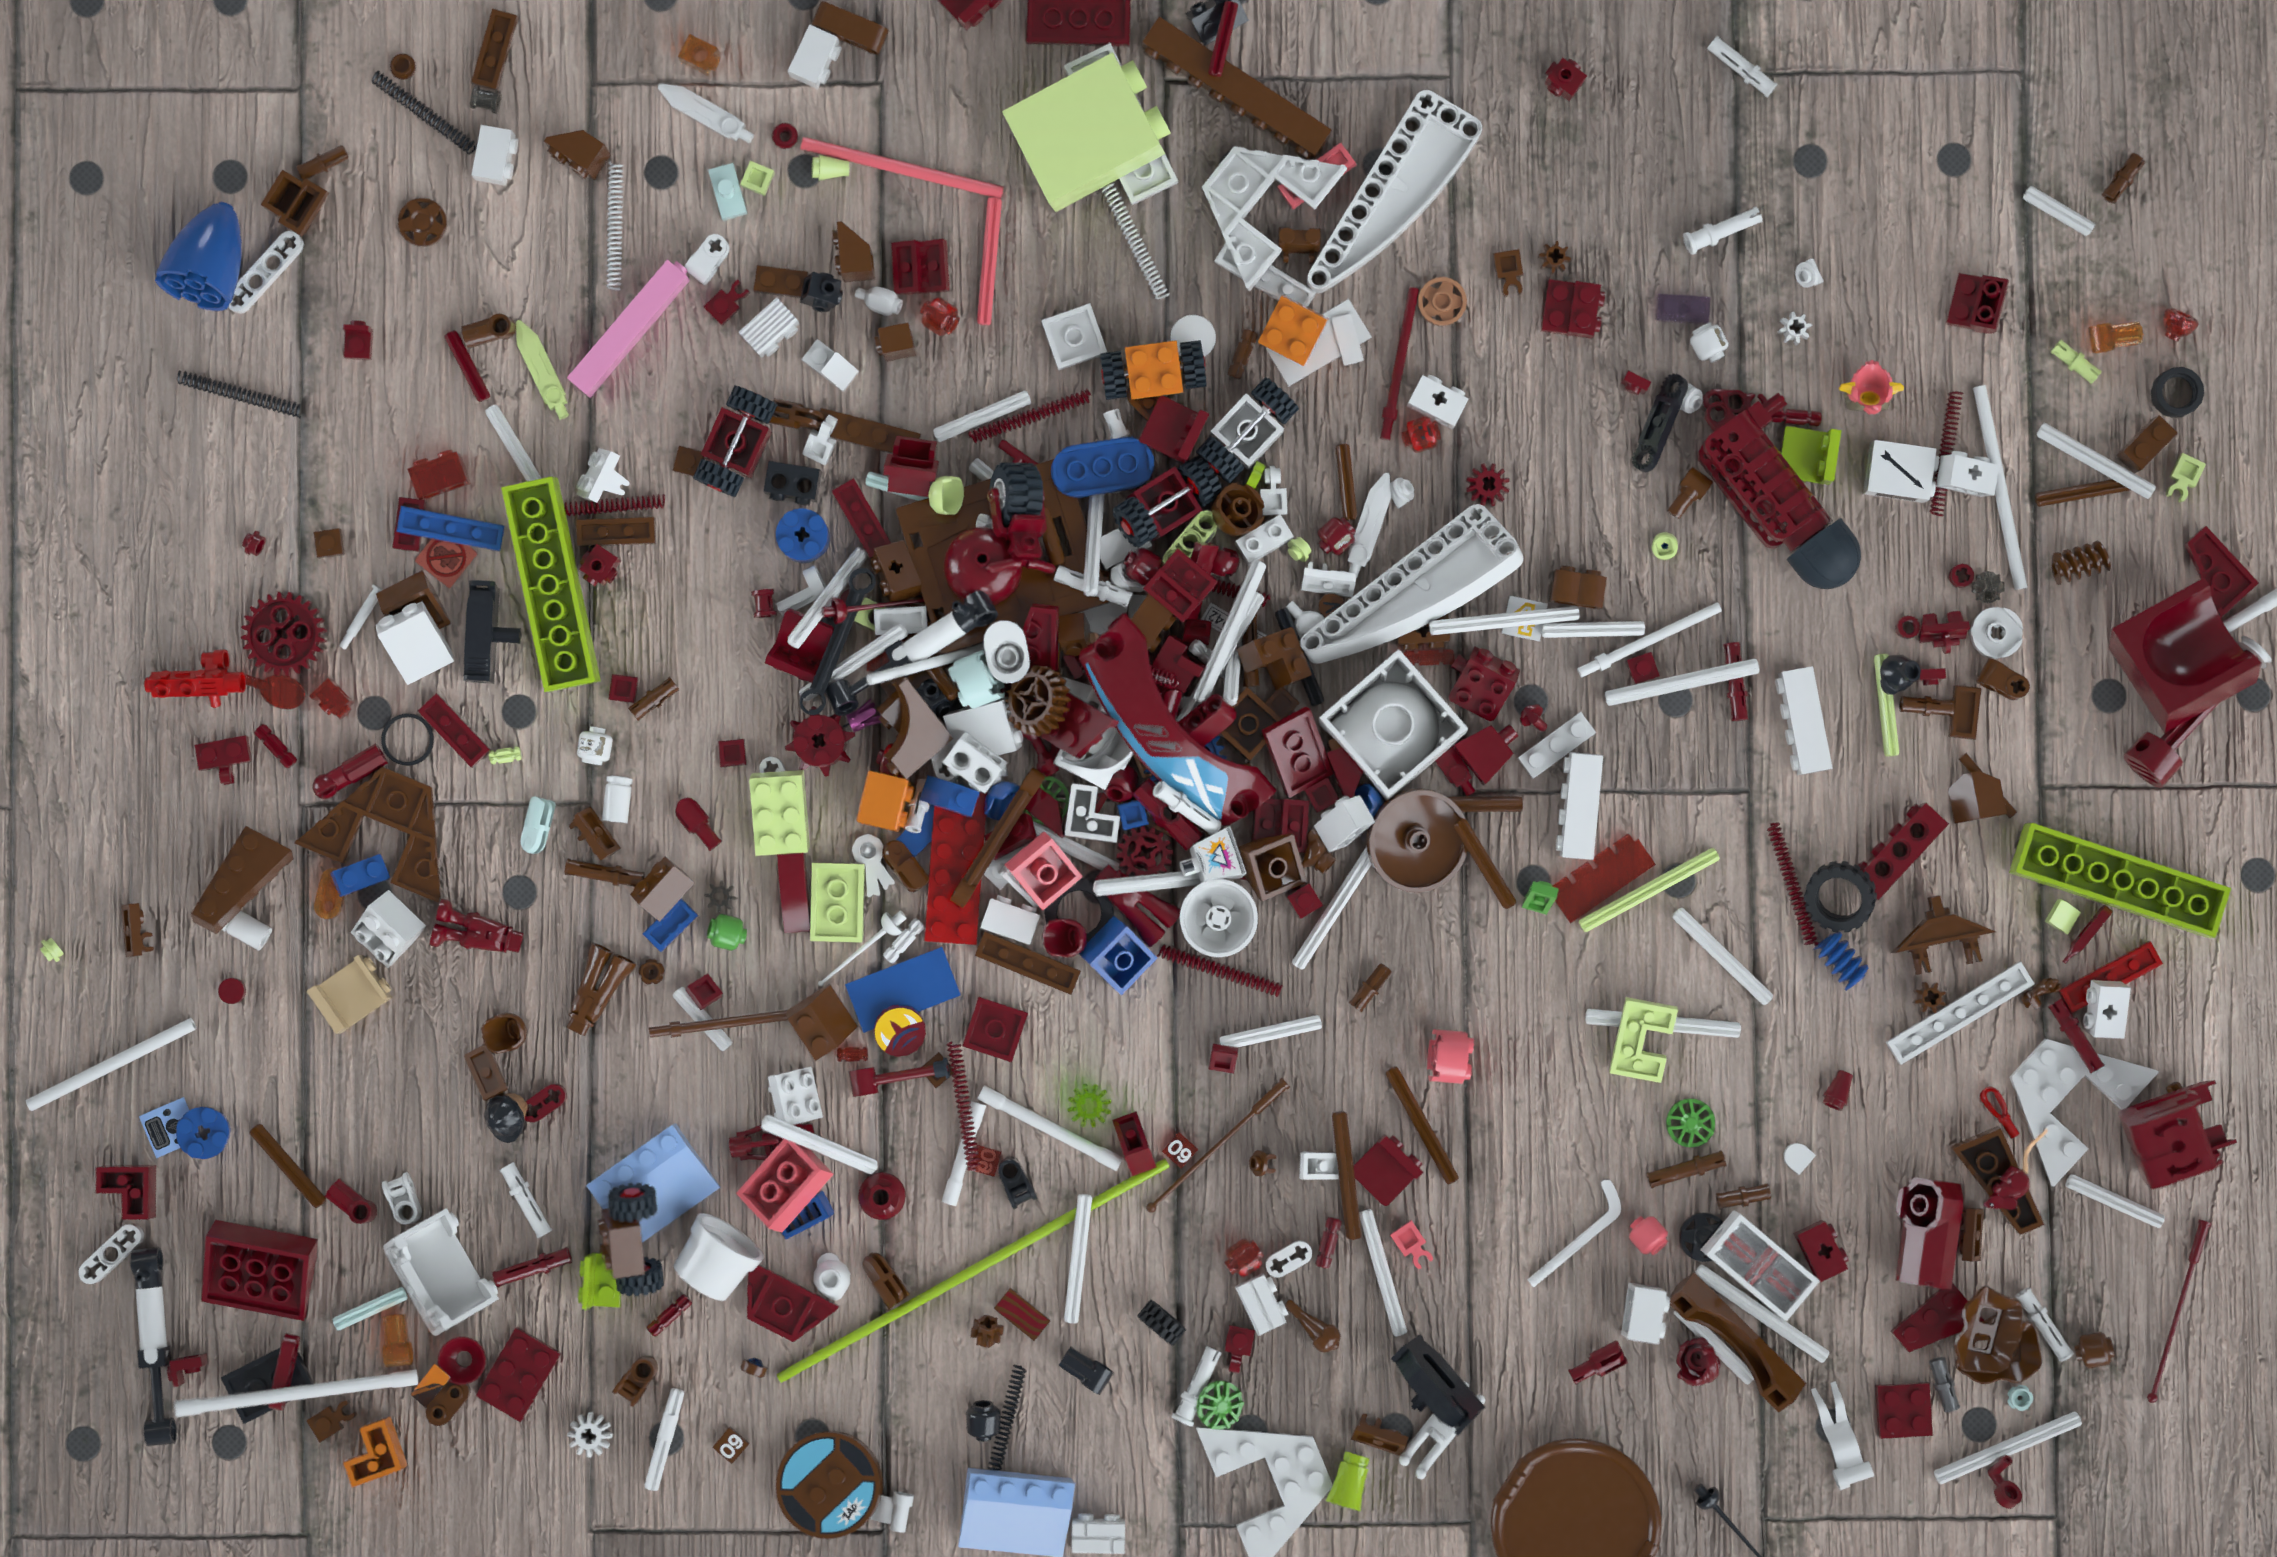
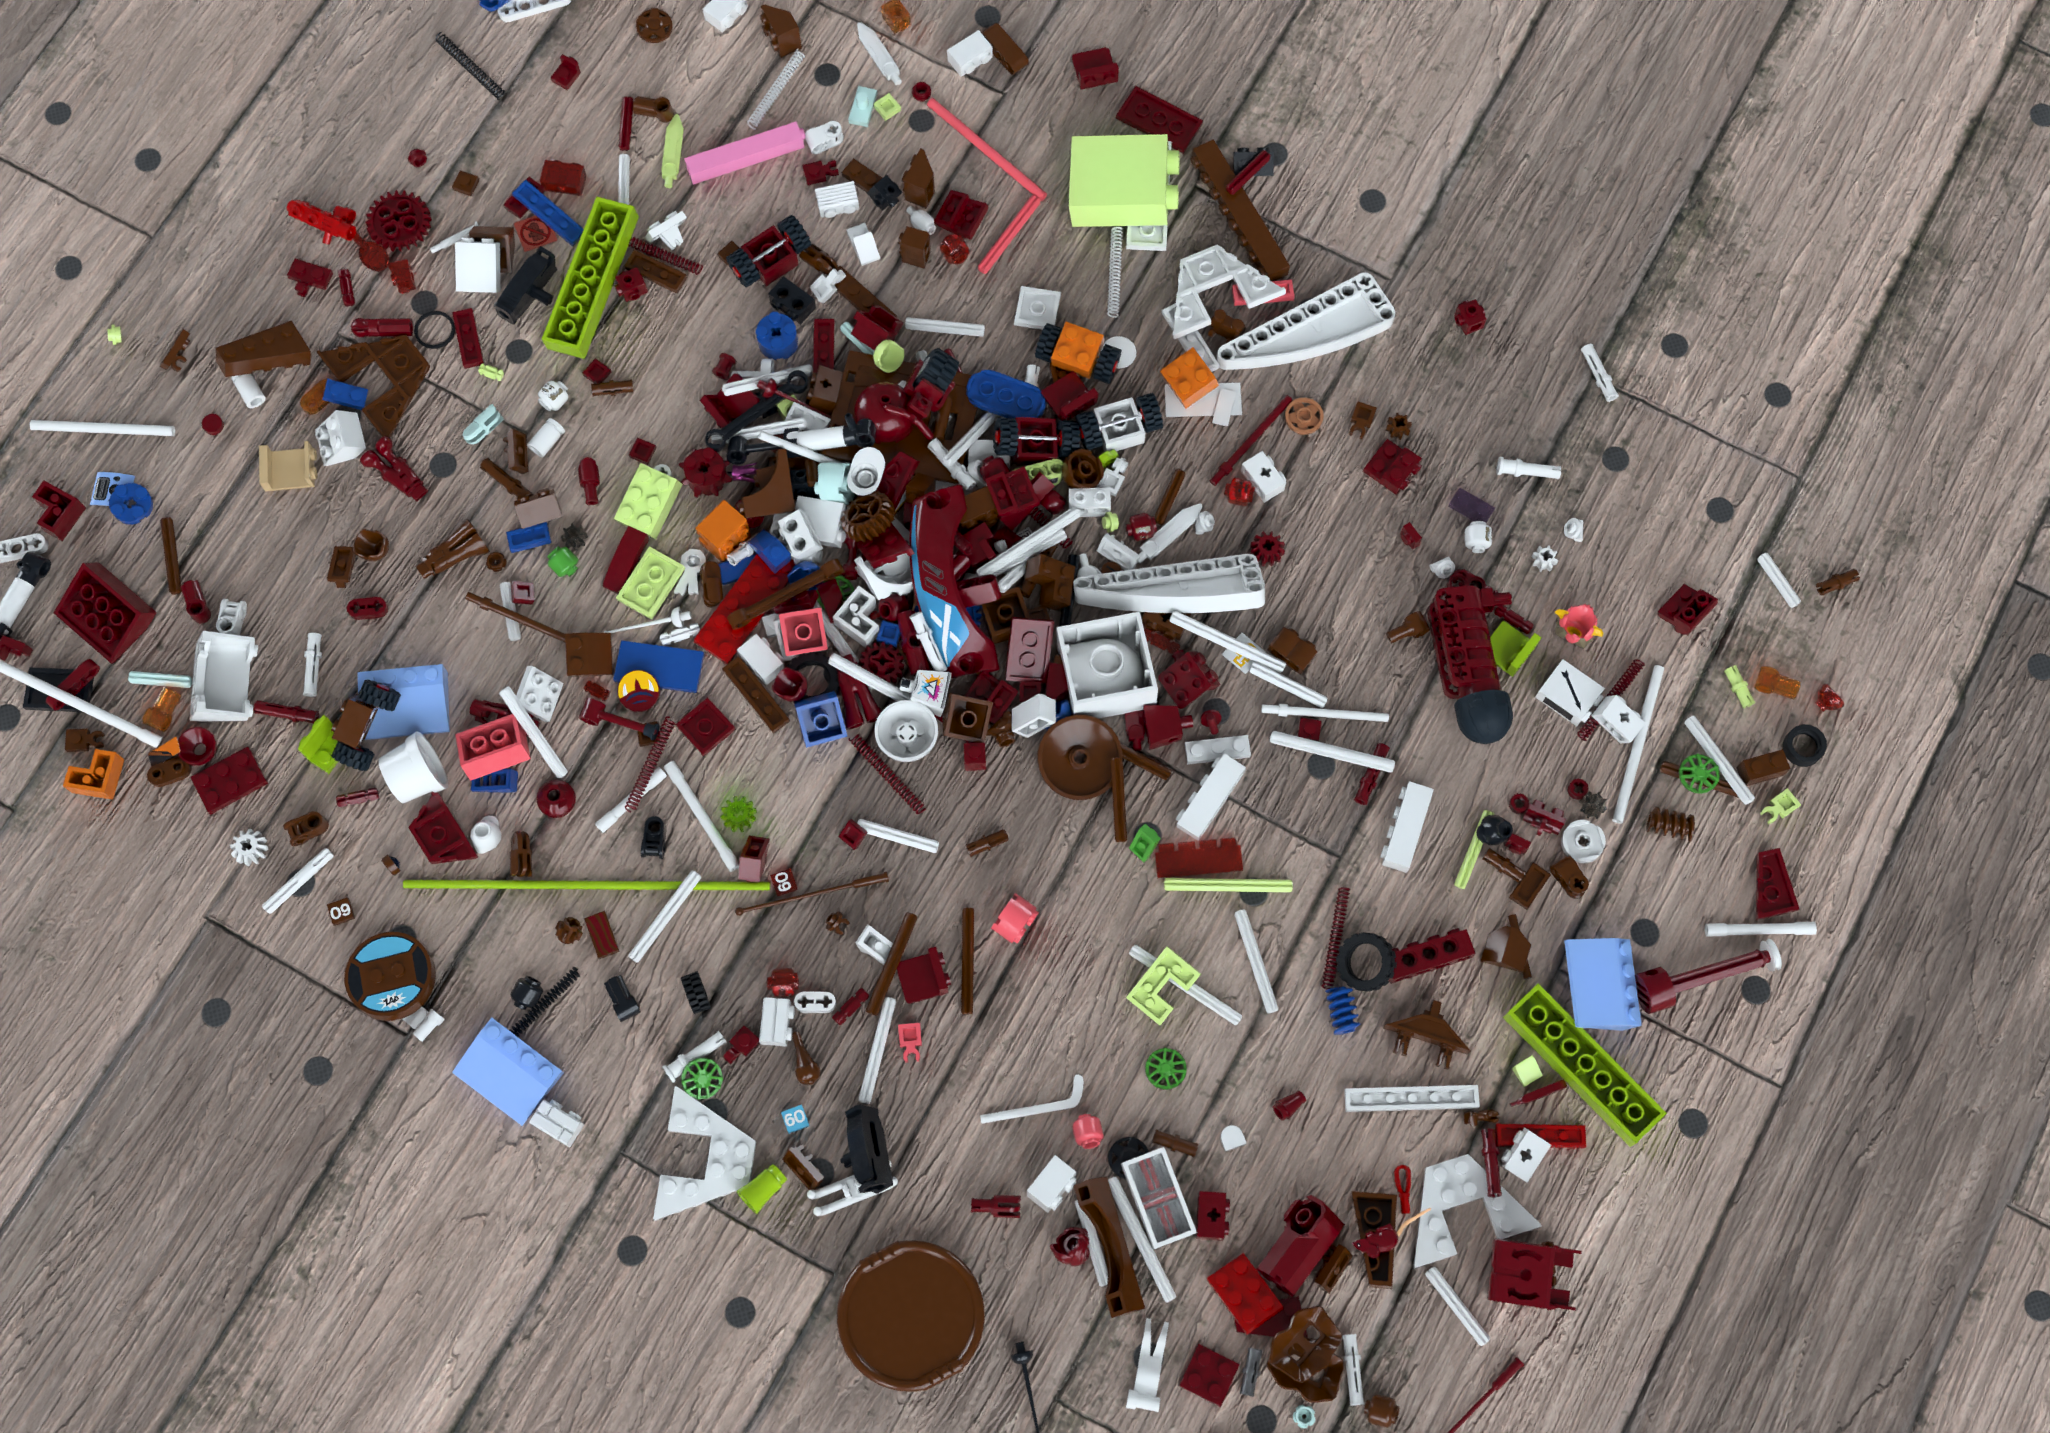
camera: 30 degrees right, 15 degrees down
(506, 1116) = (334, 600): black piece -> none
(827, 167) = (938, 124): yellowish green cone -> none
(985, 431) = (977, 344): dark red piece -> none
(988, 1159) = (642, 813): clear red tile -> none
(1242, 354) = (1146, 378): reddish brown axle -> none
(1332, 911) = (990, 776): white axle -> none
(1339, 1391) = (795, 1119): none -> medium azure tile
(1660, 422) = (1413, 571): black plate -> none
(1664, 545) = (1371, 655): yellowish green tile -> none
(1689, 1168) = (1144, 1099): reddish brown pin -> none
(1897, 1311) = (1245, 1293): none -> red plate
(1934, 1001) = (1389, 1076): reddish brown gear -> none
(2082, 489) = (1699, 773): none -> bright green wheel
(2097, 784) = (1603, 983): none -> light blue slope
(2182, 656) = (1714, 923): dark red piece -> none

